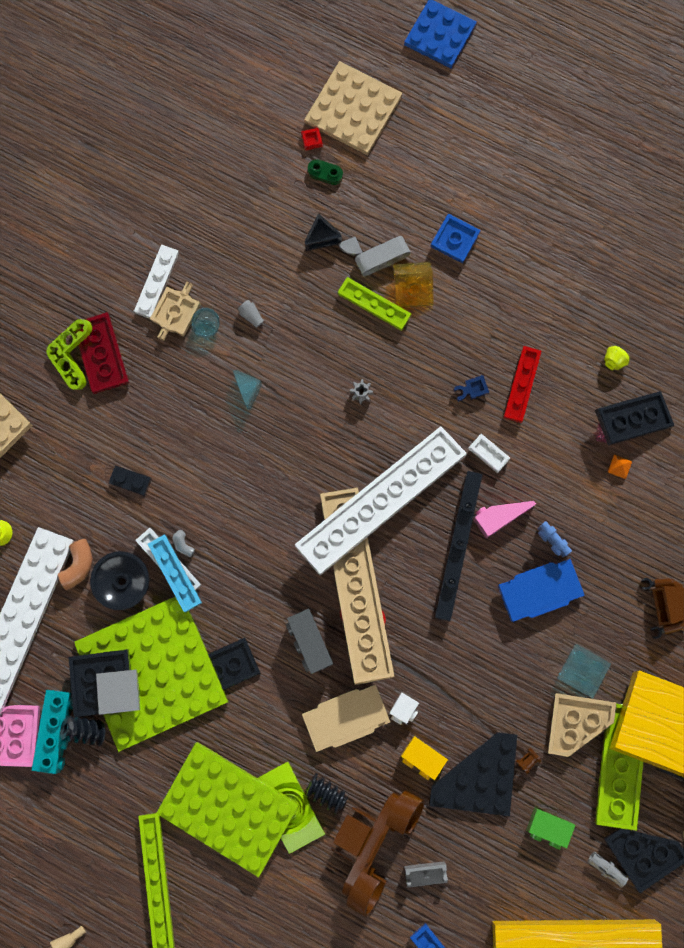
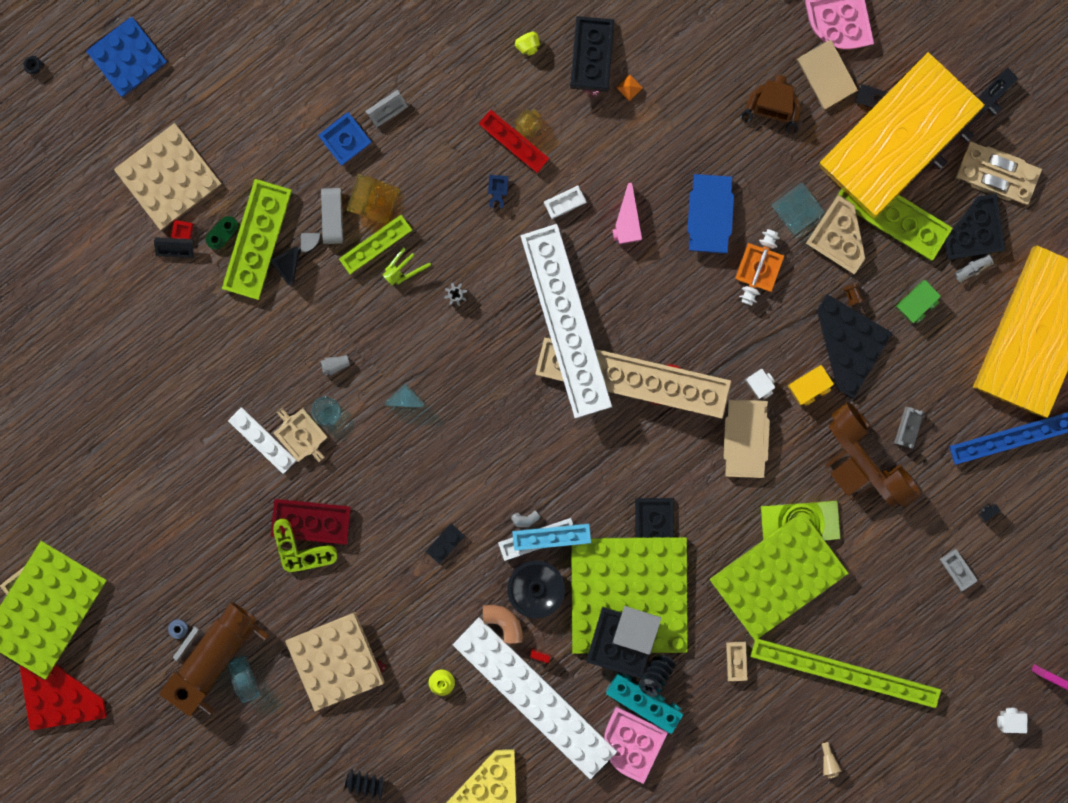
camera: 70 degrees left, 10 degrees up
(59, 612) = (540, 656): none -> red tile
(128, 804) = (736, 661): none -> tan plate
(294, 136) = (174, 247): none -> black plate
(309, 642) = (667, 442): dark grey brick -> none
(326, 794) = (804, 484): black piece -> none
(333, 201) = (256, 239): none -> lime plate
(355, 329) = (393, 273): none -> lime plant
(458, 546) = (637, 269): black piece -> none
(499, 262) = (386, 108): none -> light grey plate
(512, 659) = (759, 267): none -> orange plate
(545, 389) = (528, 123): none -> clear yellow head
(548, 534) = (678, 179): medium blue plate -> none

